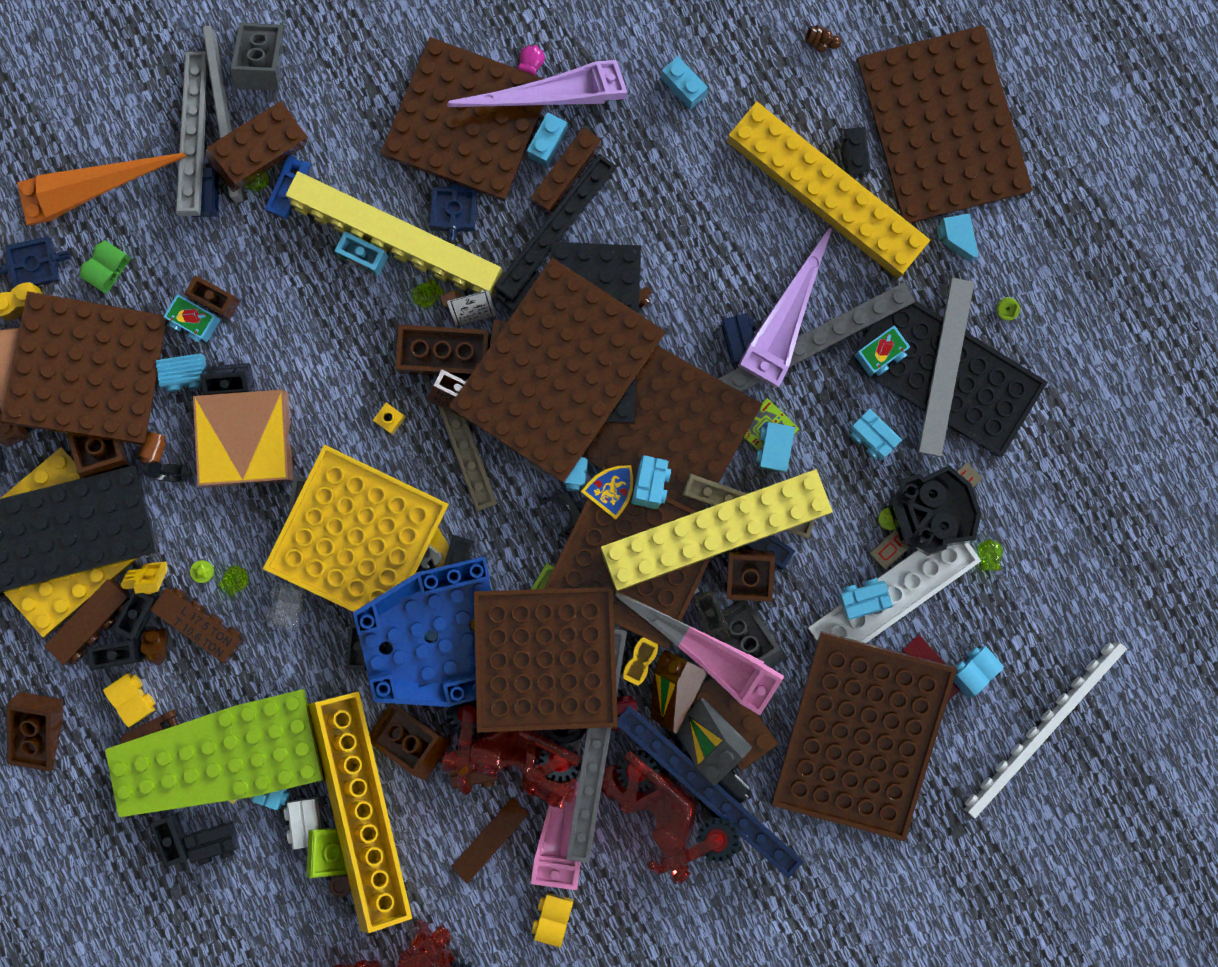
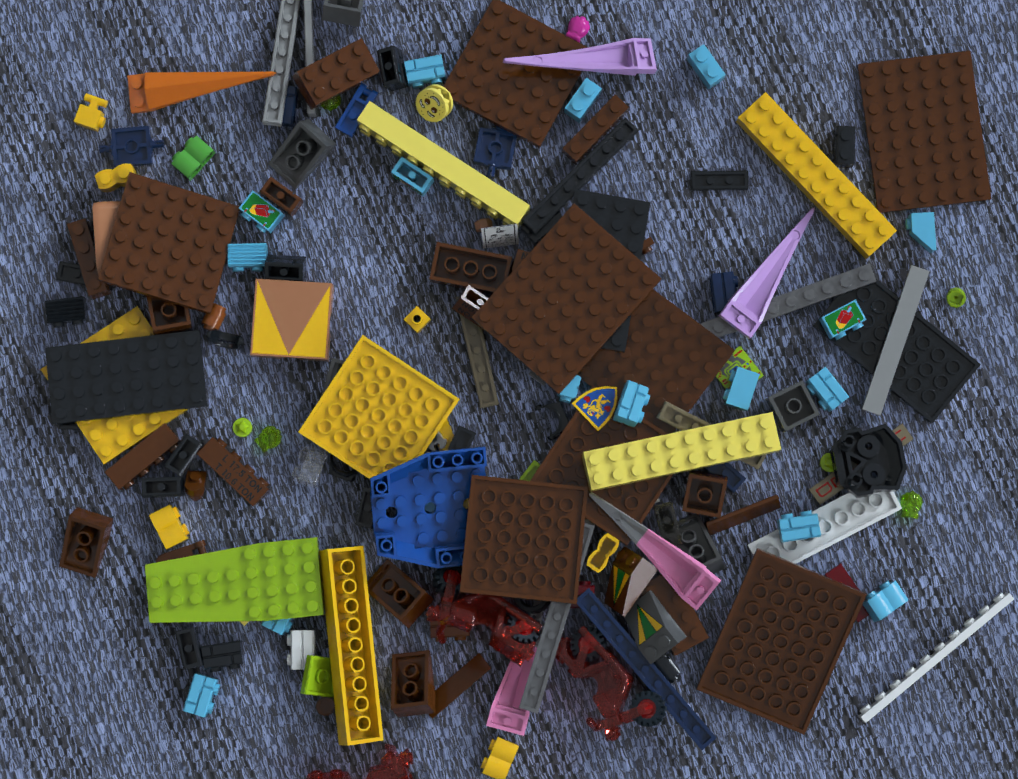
camera: 10 degrees right, 0 degrees up
(147, 579) = (196, 427): yellow hinge -> none
(192, 893) = (201, 695): none -> medium azure brick
(230, 243) = (301, 152): none -> dark grey slope
(314, 607) = (348, 476): none -> black helmet
(322, 132) = (392, 68): none -> black brick
(361, 131) = (425, 71): none -> medium azure brick
(375, 165) = (434, 103): none -> light yellow head
(426, 293) = (462, 217): clear neon green animal -> none
(438, 846) = (412, 684): none -> reddish brown slope
(717, 211) = (719, 180): none -> black tile
(798, 593) = (743, 514): none -> reddish brown slope
(820, 38) = (829, 43): reddish brown piece -> none
(838, 460) = (792, 406): none -> dark grey brick

